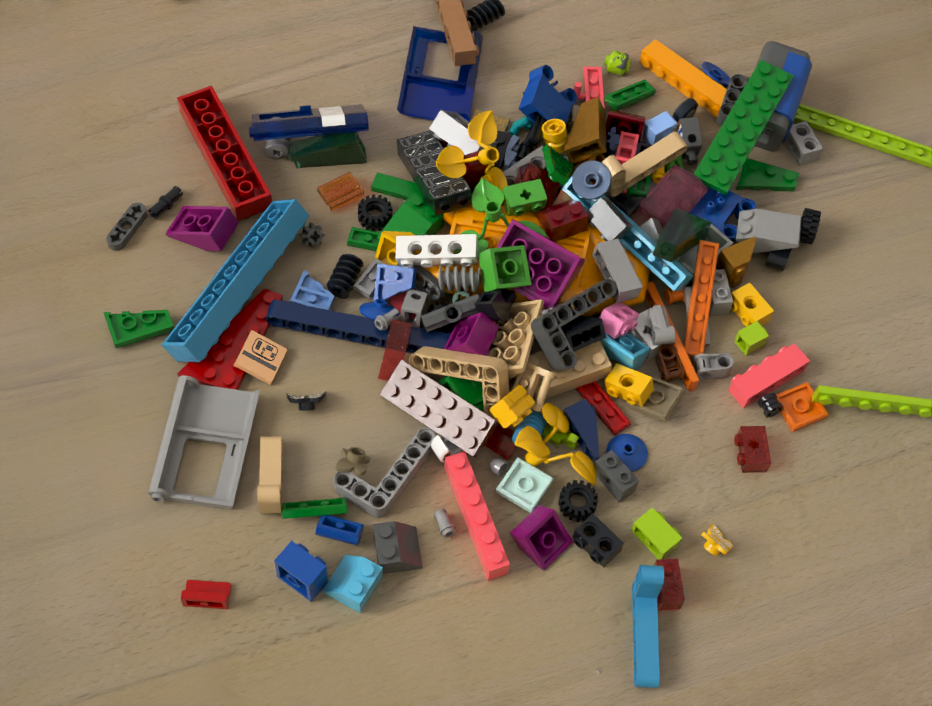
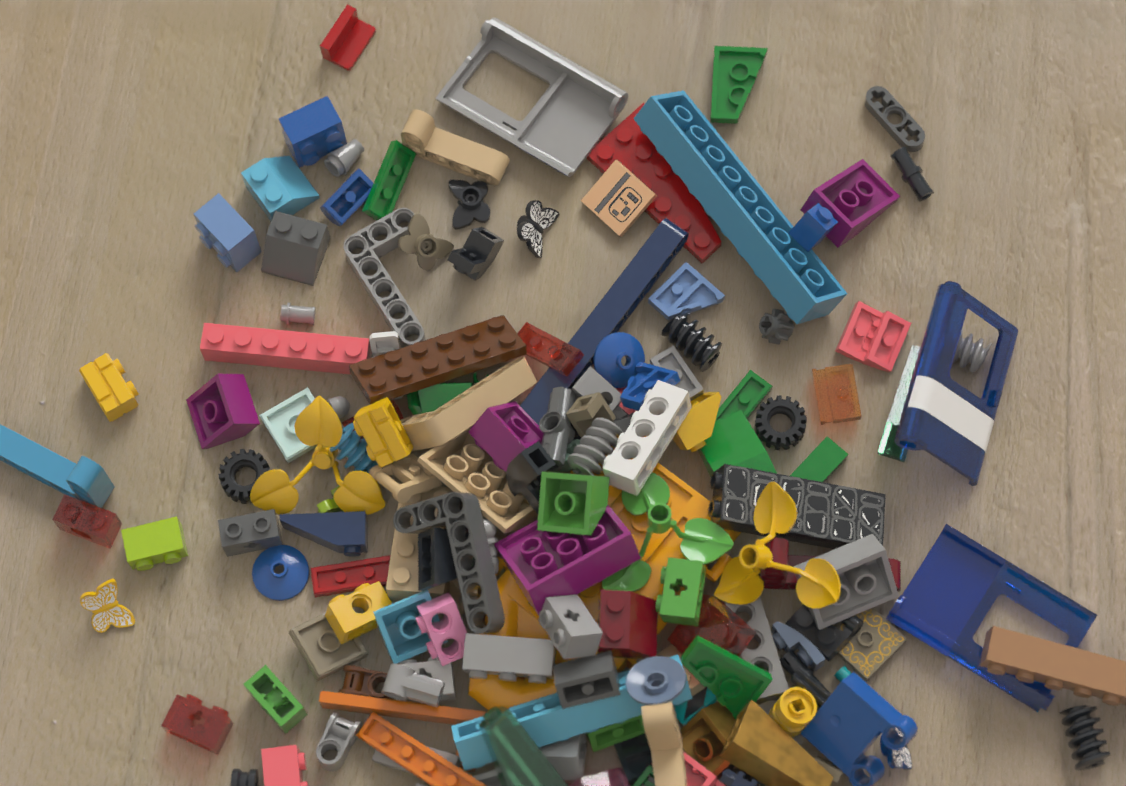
camera: 125 degrees right, 10 degrees up
(224, 153) = (981, 264): red brick -> none
(236, 228) = (813, 227): none -> blue brick
(291, 185) = (873, 337): none -> coral slope
(302, 451) = (470, 203): none -> black animal
(314, 547) = (343, 158): none -> light grey cone
(344, 426) = (476, 253): none -> black brick
(384, 321) = (589, 348): light grey pin -> none
(411, 592) = (226, 233): none -> medium blue brick
(432, 297) = (586, 410): none -> dark tan panel
(565, 622) = (109, 387): none -> yellow brick
(584, 235) = (570, 626): none -> light grey brick
(601, 538) = (184, 479): black brick -> none
(712, 407) = (275, 699): none -> bright green brick

